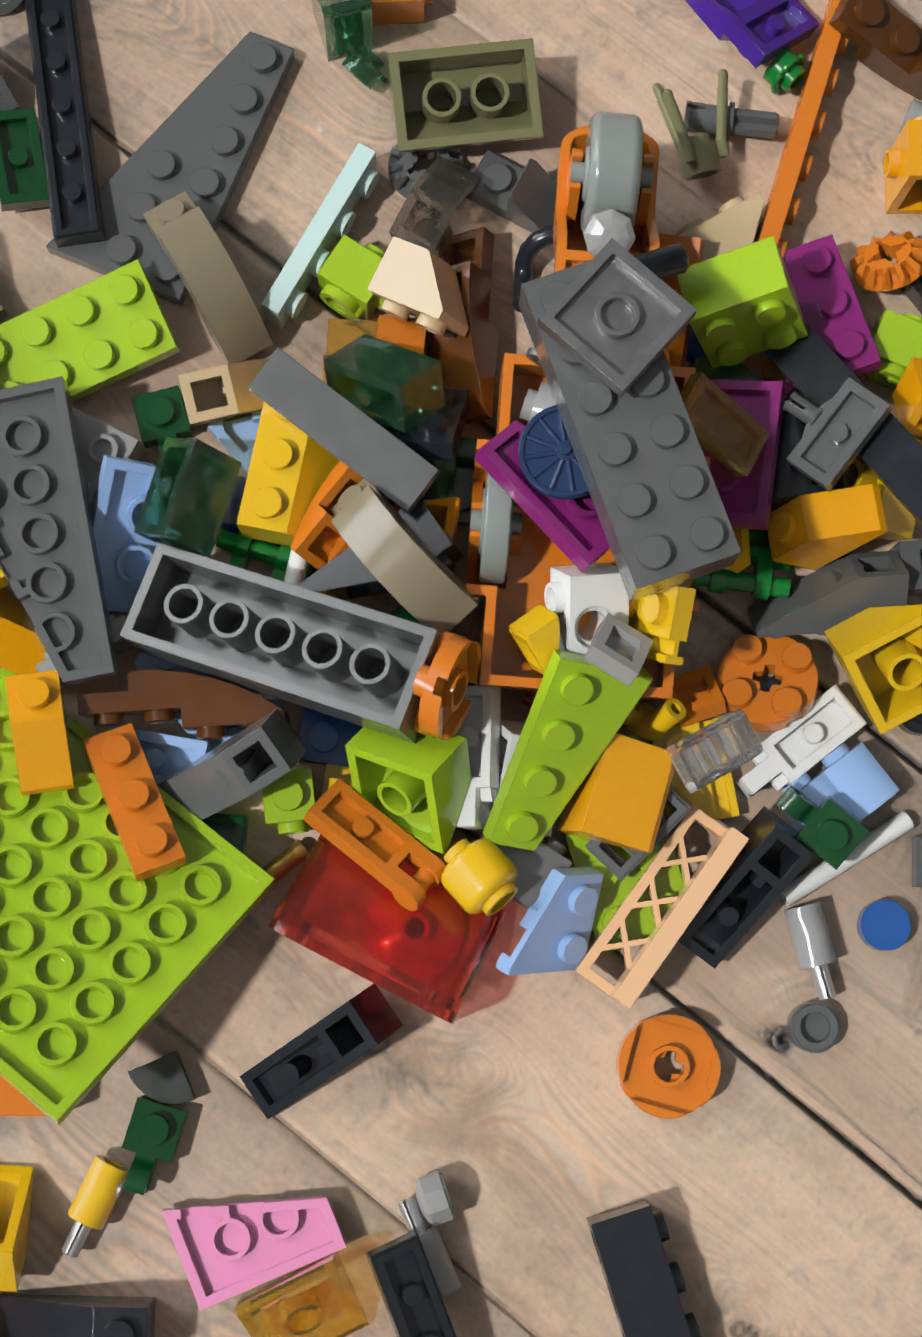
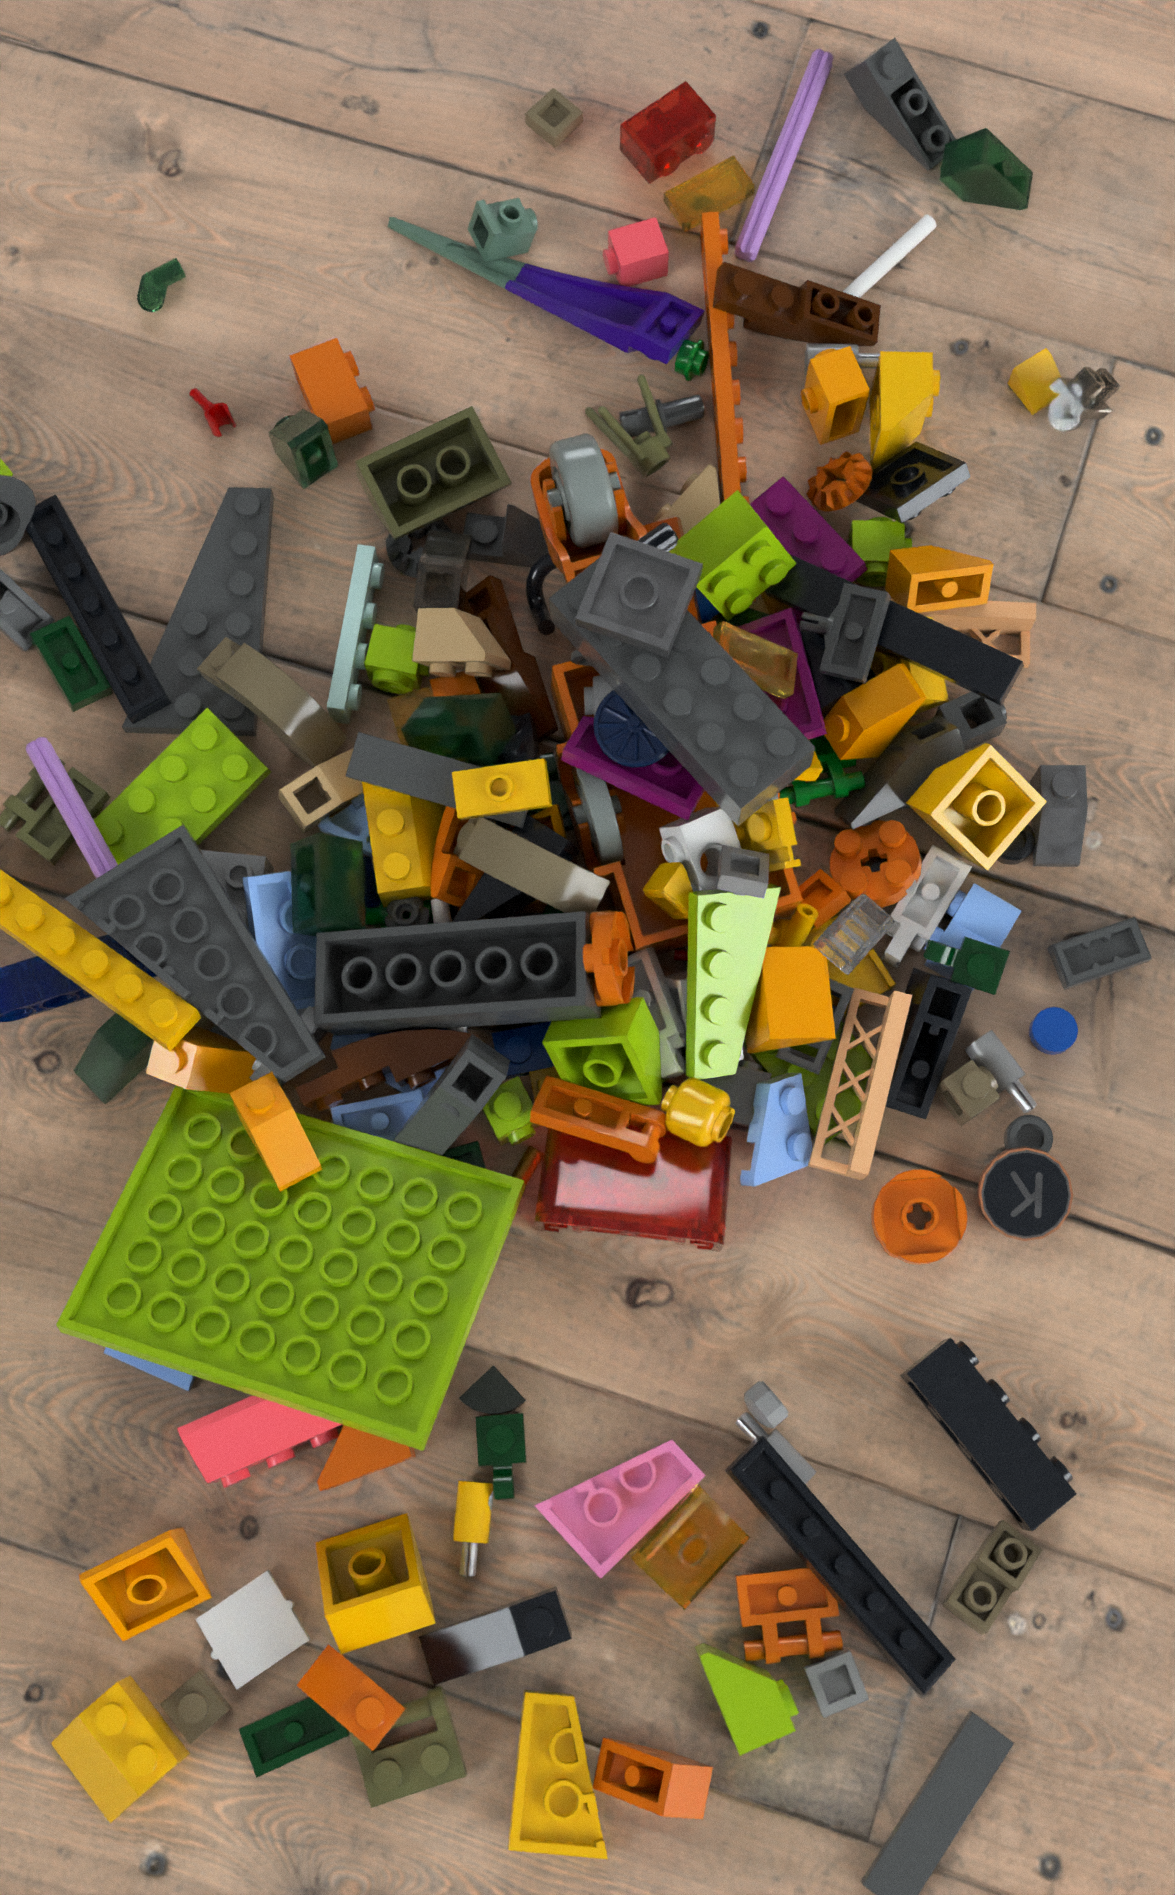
camera: 10 degrees left, 5 degrees down
(134, 802) = (379, 1160): orange plate -> none
(161, 416) = (274, 833): dark green plate -> none
(273, 560) = (413, 905): none -> dark grey plate
(321, 1051) = (618, 1316): black slope -> none
(364, 66) = (337, 481): clear green plate -> none
(402, 465) = (501, 789): none -> yellow plate
(608, 225) = (596, 532): light grey tile -> none
(770, 957) = (968, 1091): none -> dark tan brick
(786, 1083) = (1025, 1193): none -> black tile
(870, 844) = (988, 1001): white bar -> none

